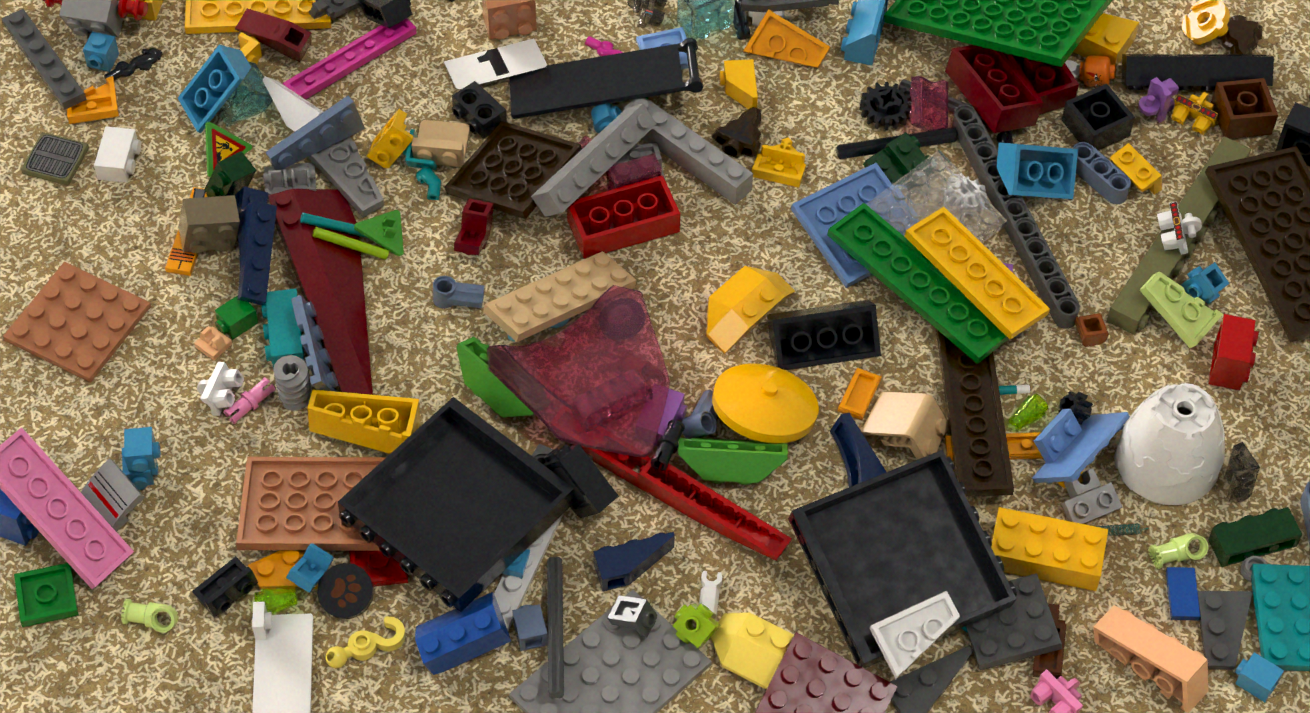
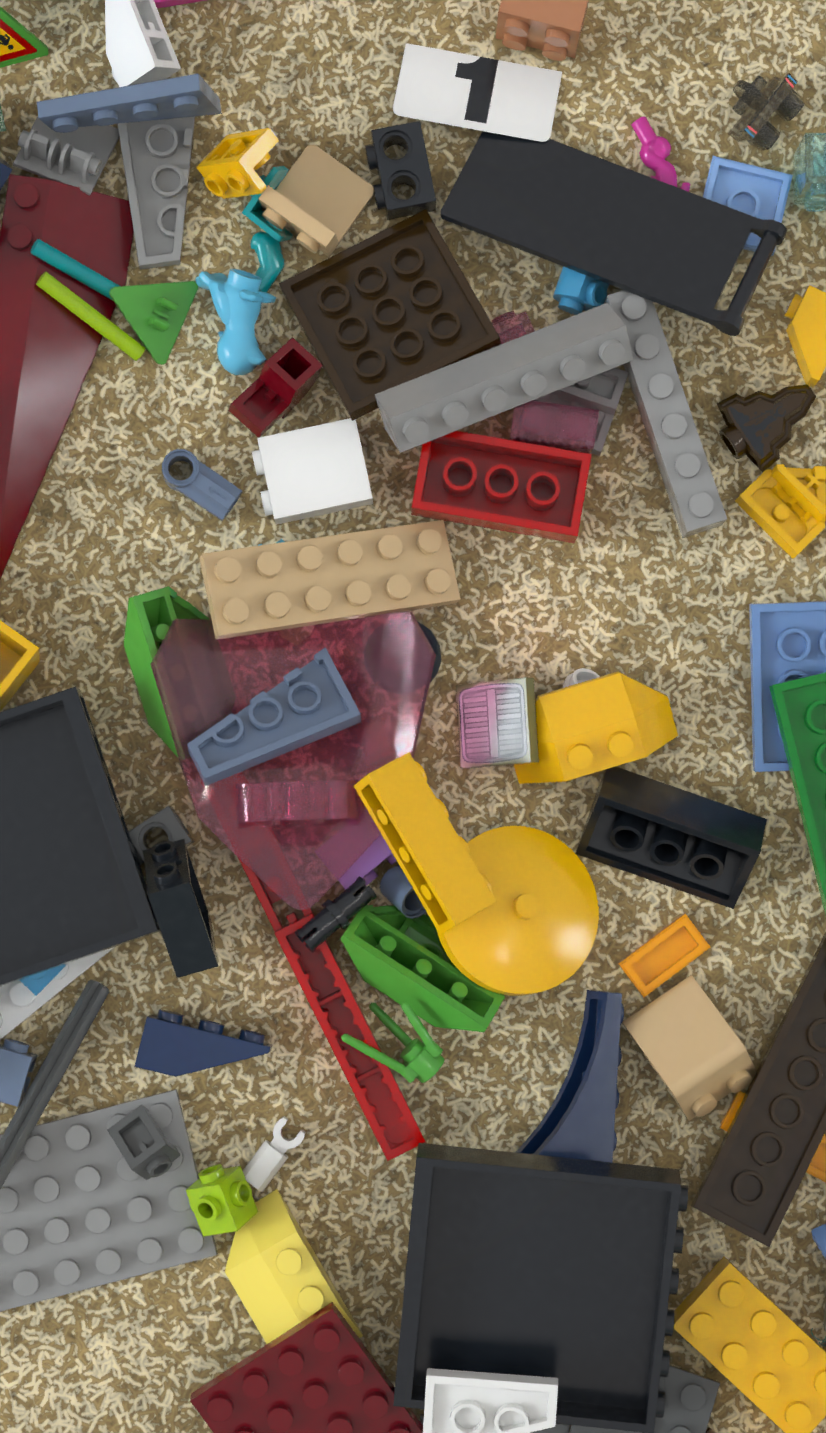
camera: 30 degrees right, 30 degrees up
(430, 204) = (238, 306): none -> medium azure animal
(518, 258) = (313, 471): none -> white brick
(579, 365) = (292, 714): none -> sand blue wing
(694, 324) = (497, 723): none -> tile
(694, 375) = (425, 842): none -> yellow brick
(759, 501) = (420, 1058): none -> bright green plant

